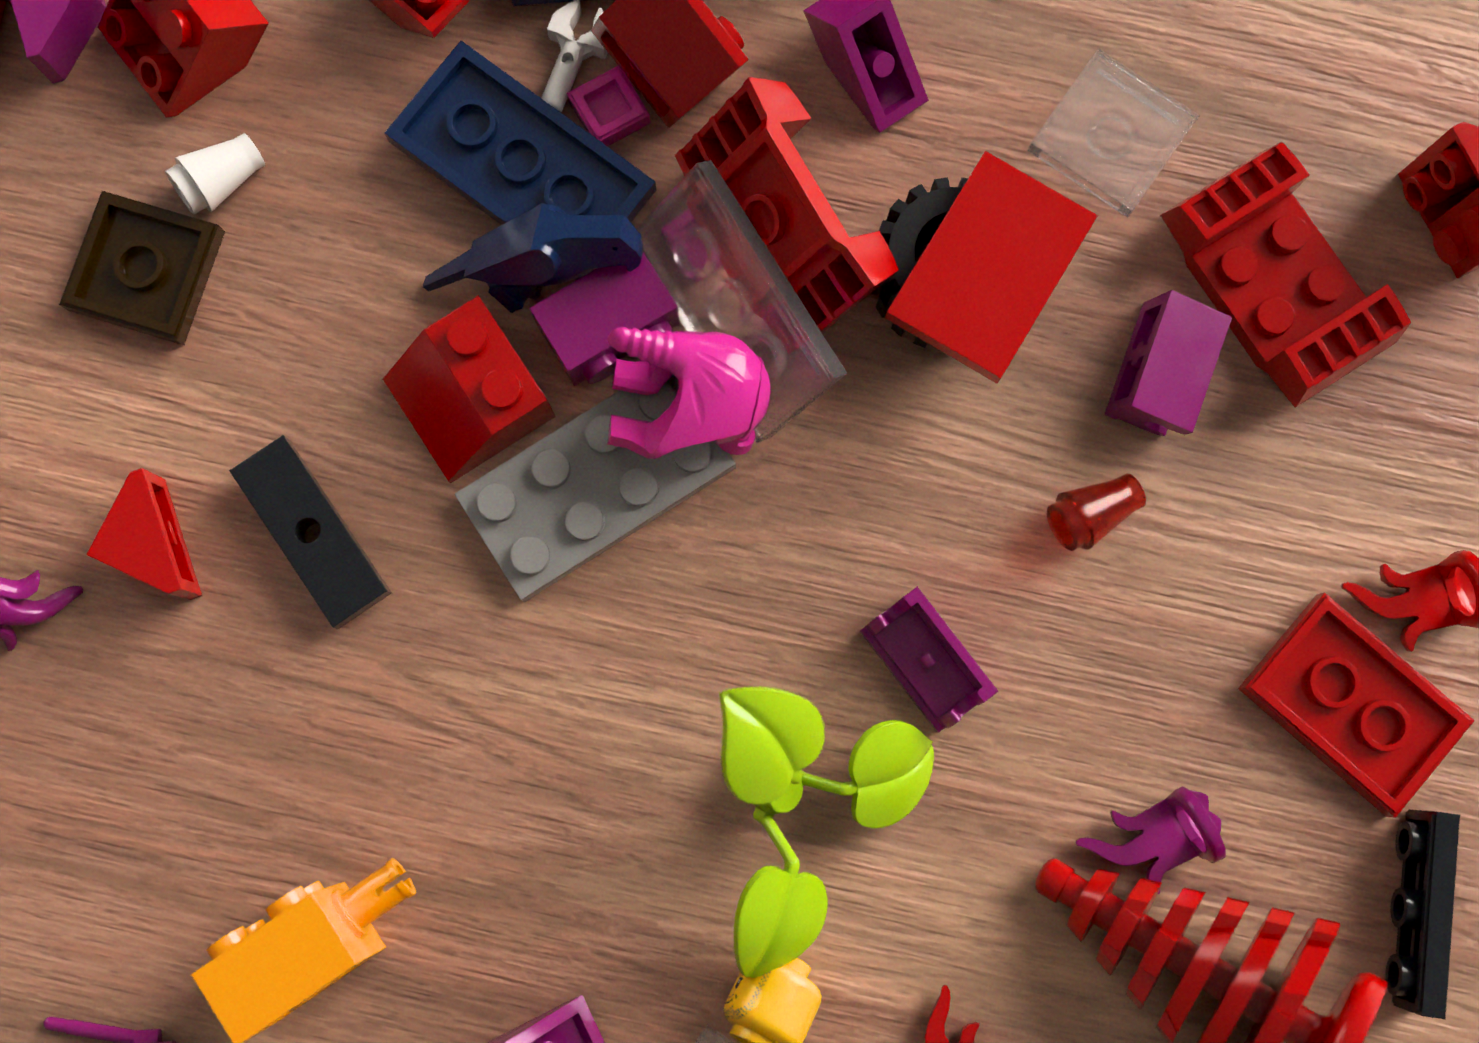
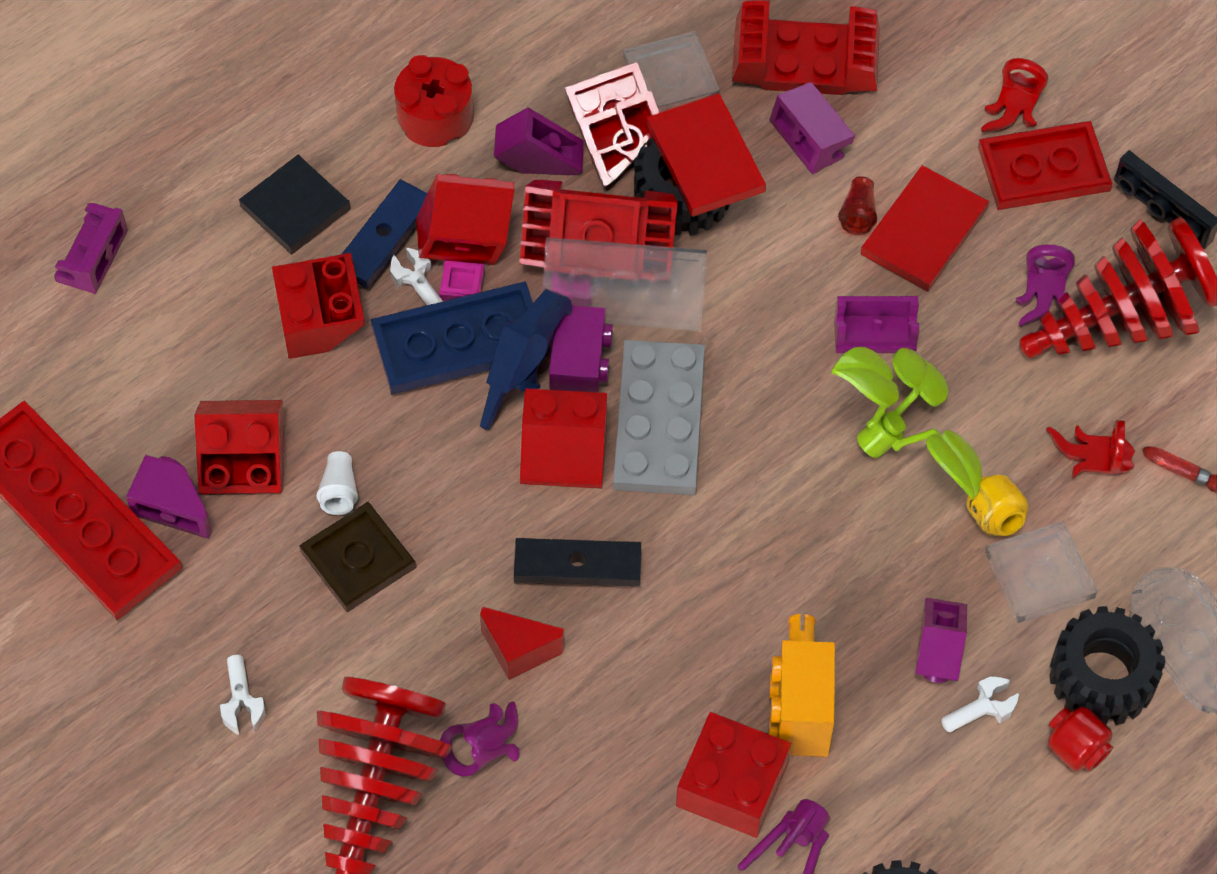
camera: 50 degrees left, 20 degrees down
(135, 935) = (733, 774): none -> red brick
(718, 395) = (672, 308): dark pink piece -> none
(987, 100) = (613, 118): none -> slope
(1132, 615) = (924, 228): none -> red tile

